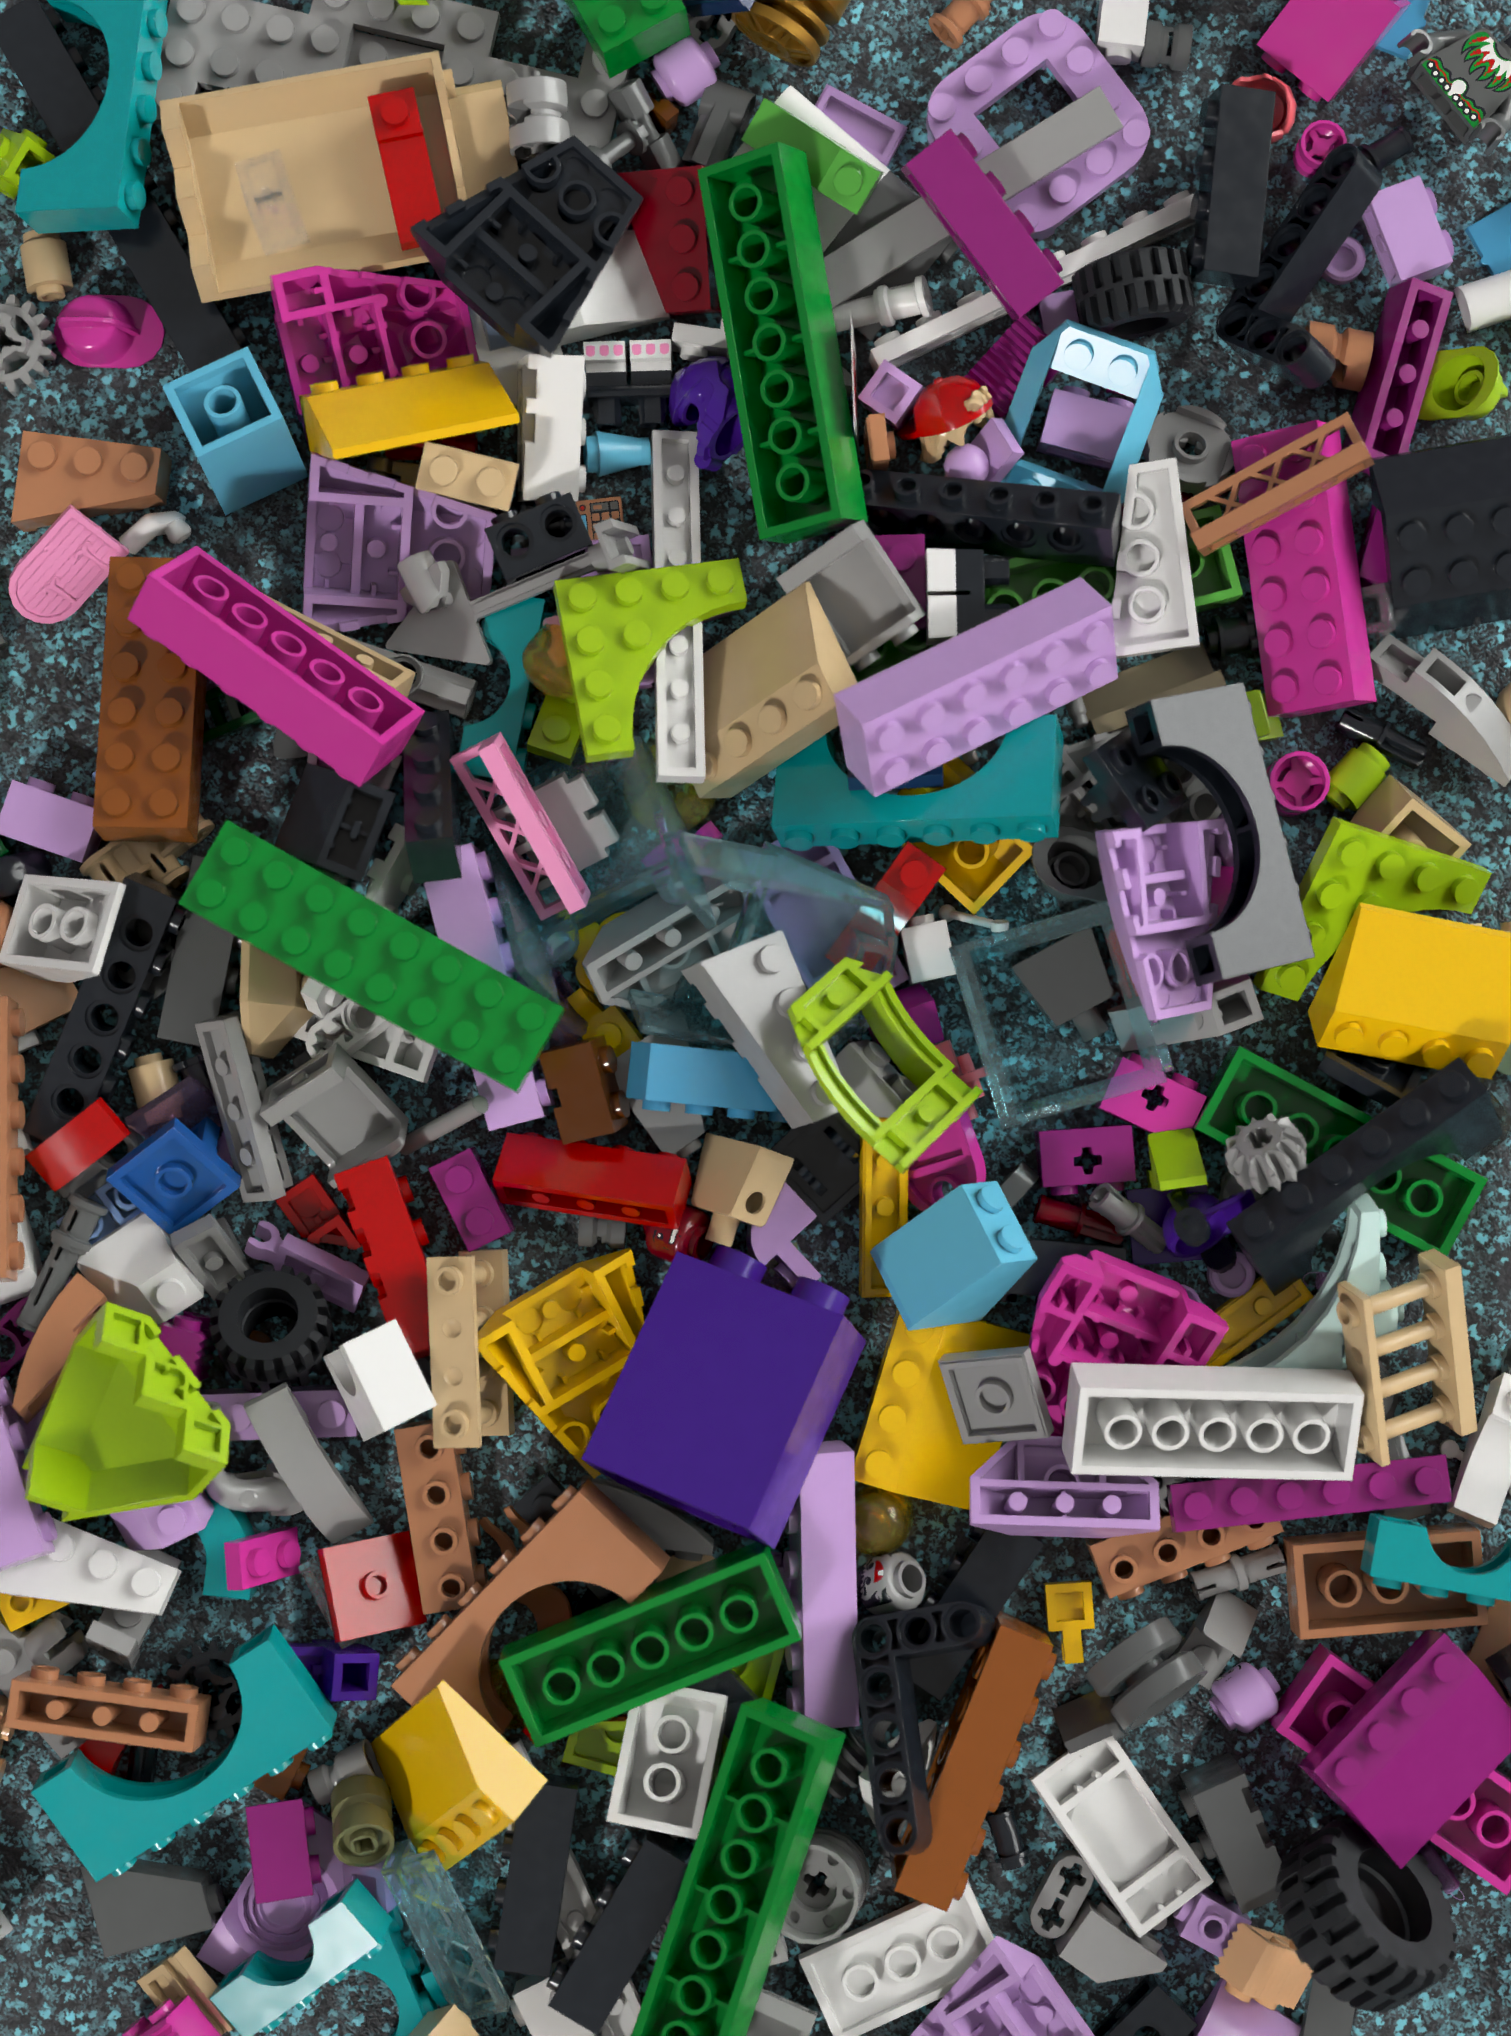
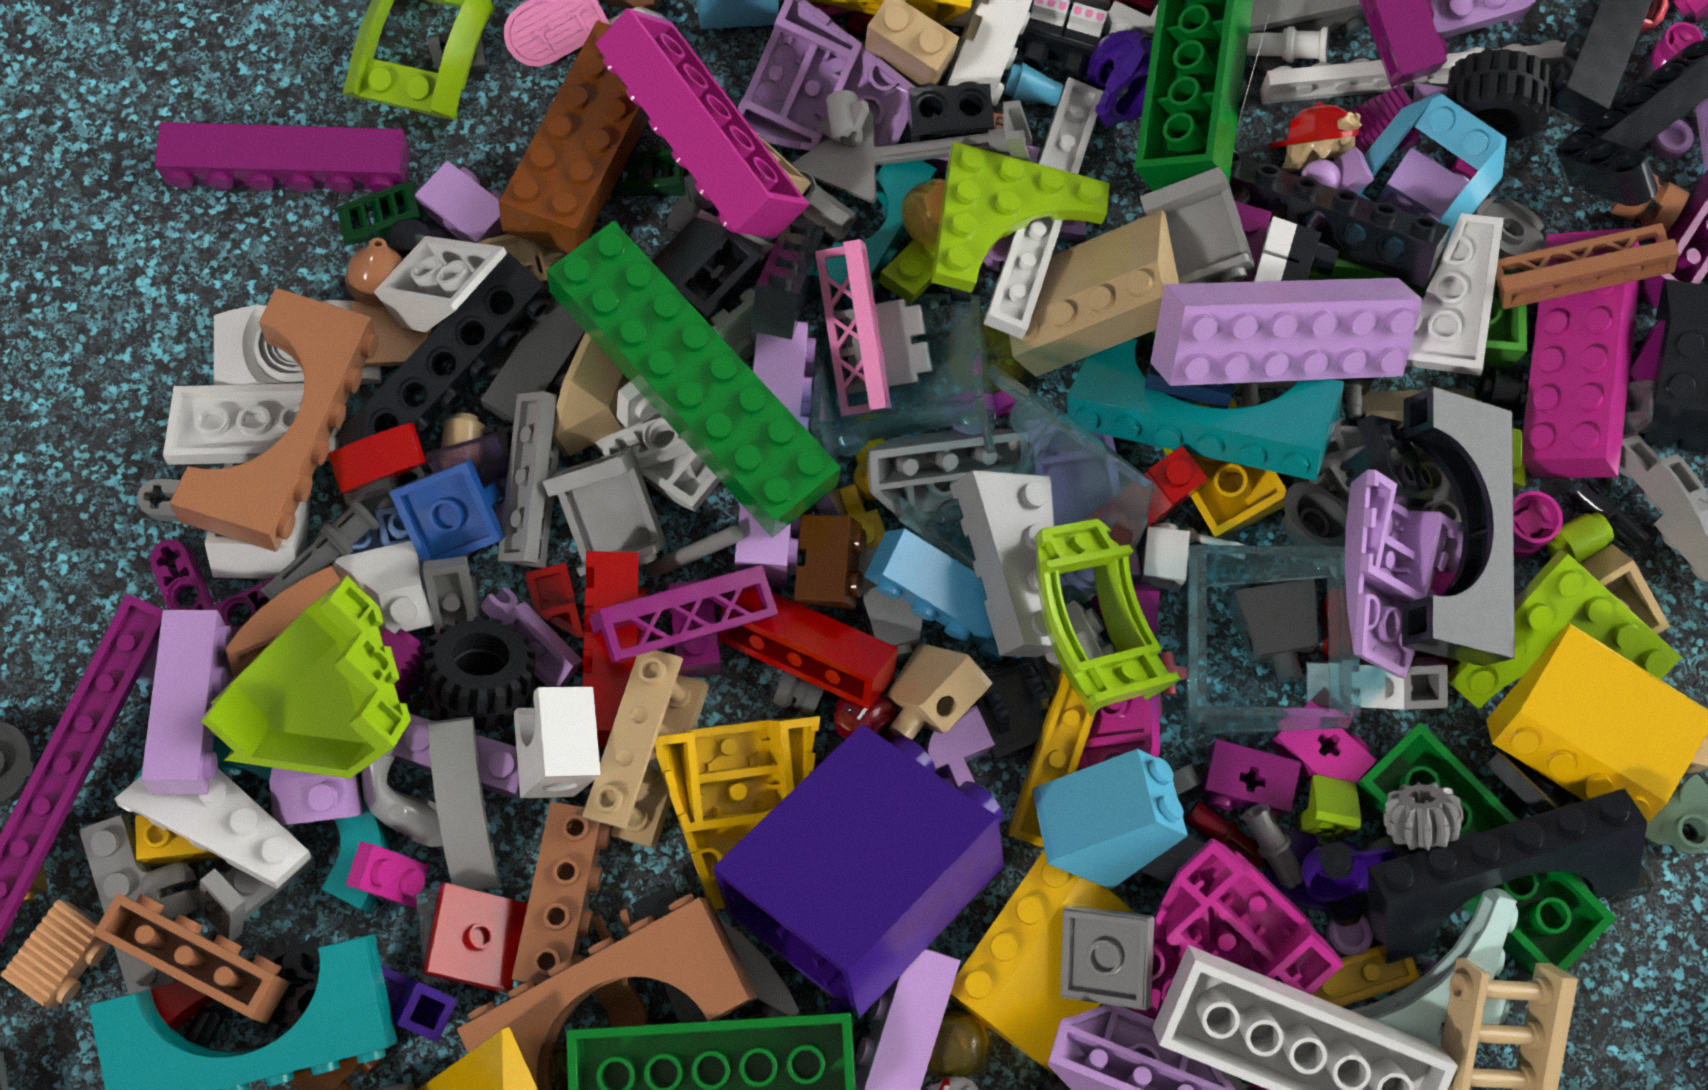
camera: 10 degrees right, 15 degrees down
(447, 1192) = (676, 601): none -> magenta fence
(878, 443) = (1252, 140): nougat plate -> none
(891, 393) = (1272, 110): lavender brick -> none

